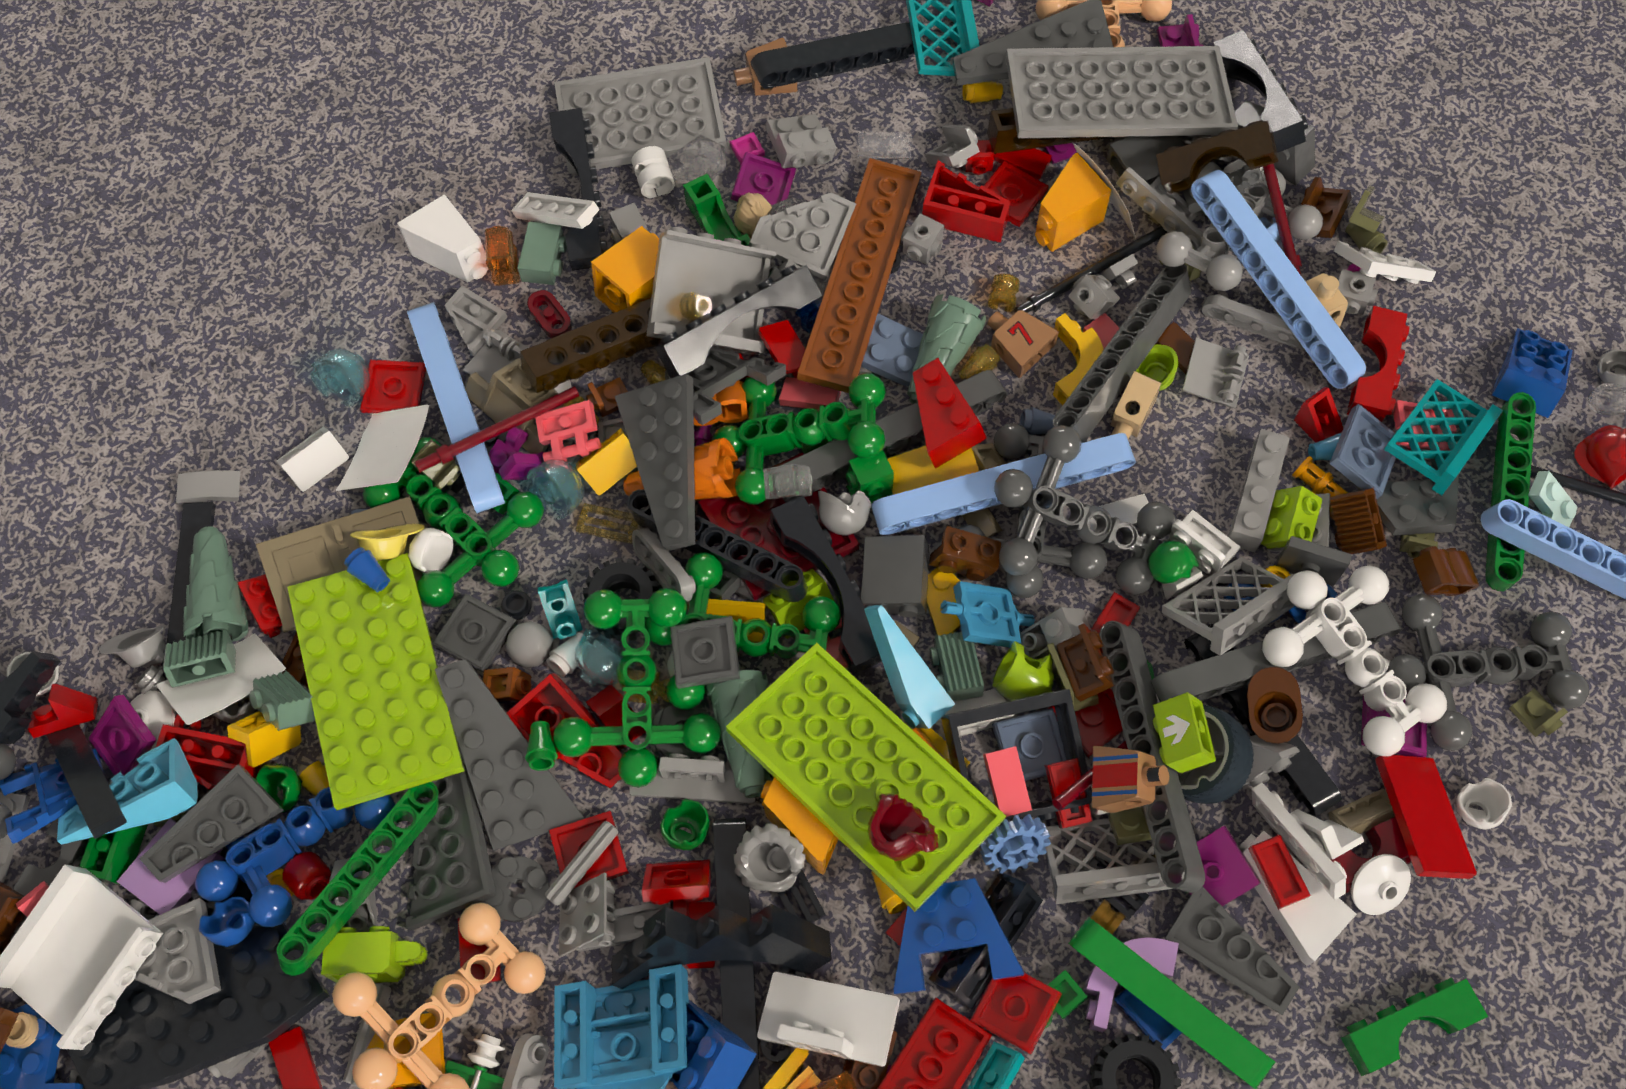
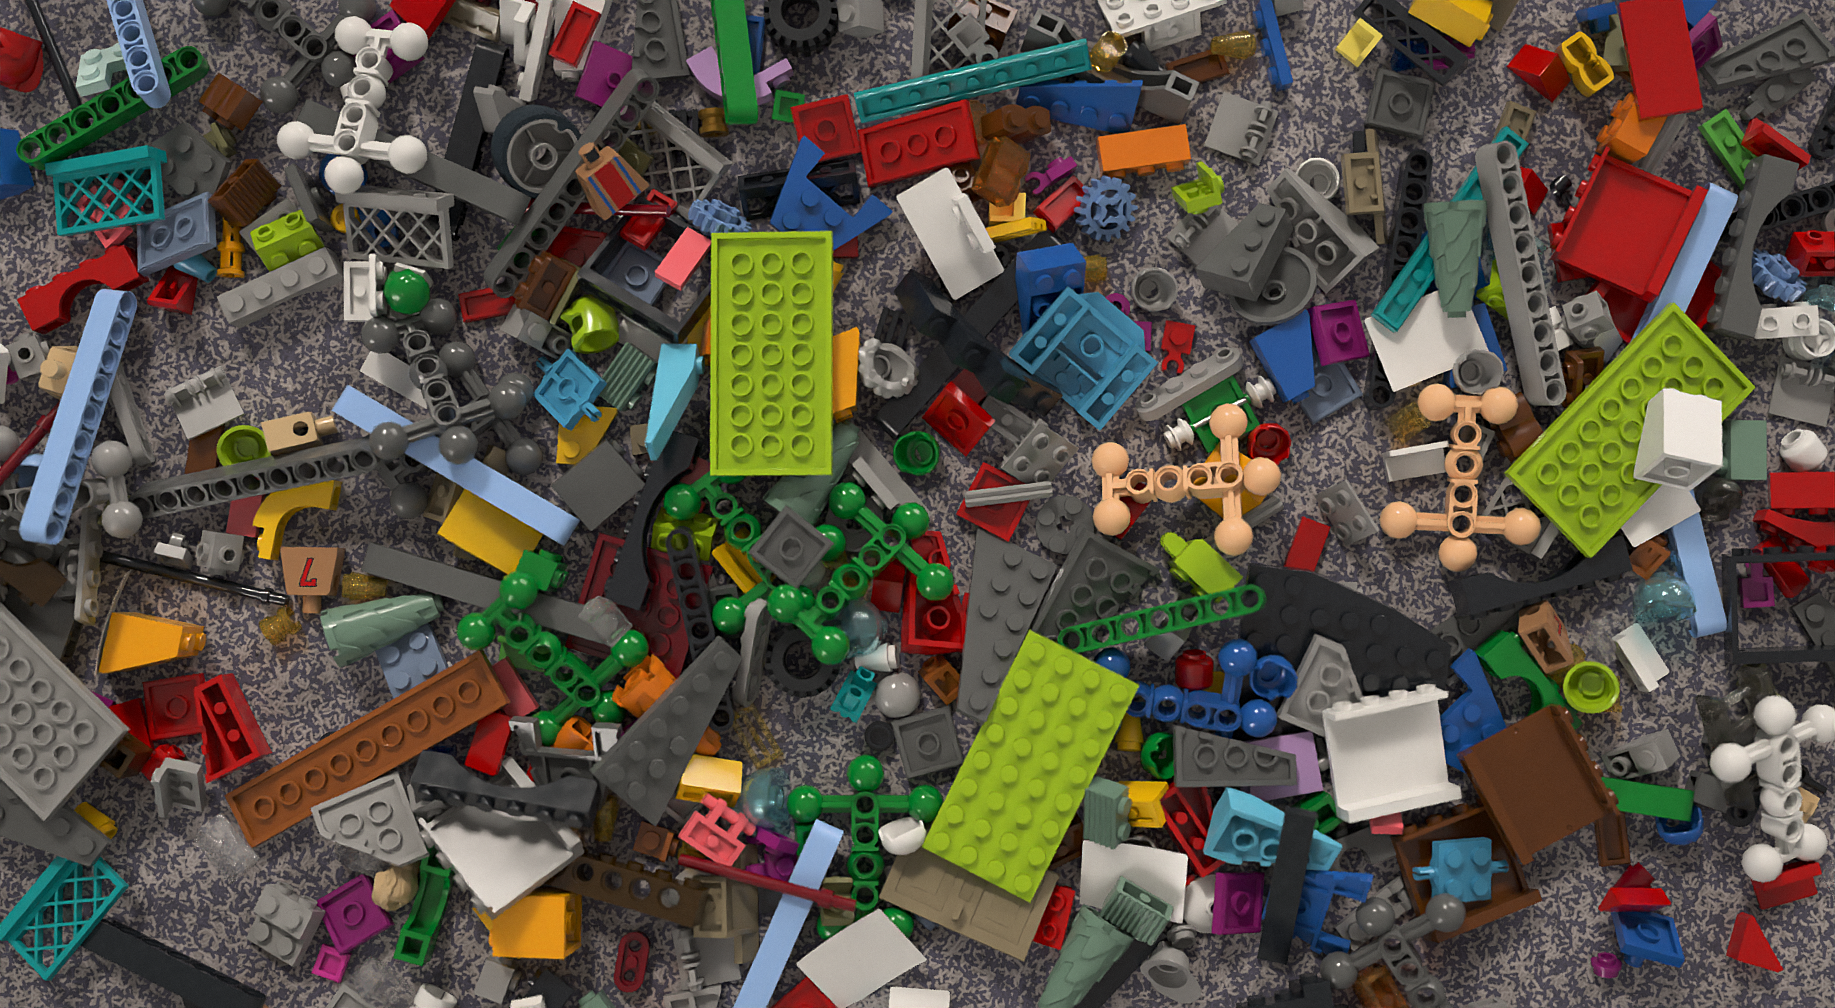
camera: 140 degrees left, 20 degrees up
(23, 1031) = (1460, 740): tan tile -> none
(65, 710) = (1261, 968): red slope -> none
(367, 569) = (963, 852): blue cone -> none
(386, 542) = (928, 871): light yellow piece -> none
(541, 748) = (963, 596): green cone -> none
(694, 305) = (525, 833): clear yellow cone -> none
(845, 513) = (587, 559): light grey helmet -> none
(900, 829) = (790, 282): dark red hair -> none
(923, 239) = (290, 731): light grey brick -> none
(945, 415) = (439, 556): red wedge -> none
(966, 554) = (534, 446): reddish brown bracket -> none
(1036, 421) = (372, 497): sand blue cone -> none
(1183, 733) = (539, 166): lime brick -> none
(1275, 705) = (456, 127): reddish brown piece -> none

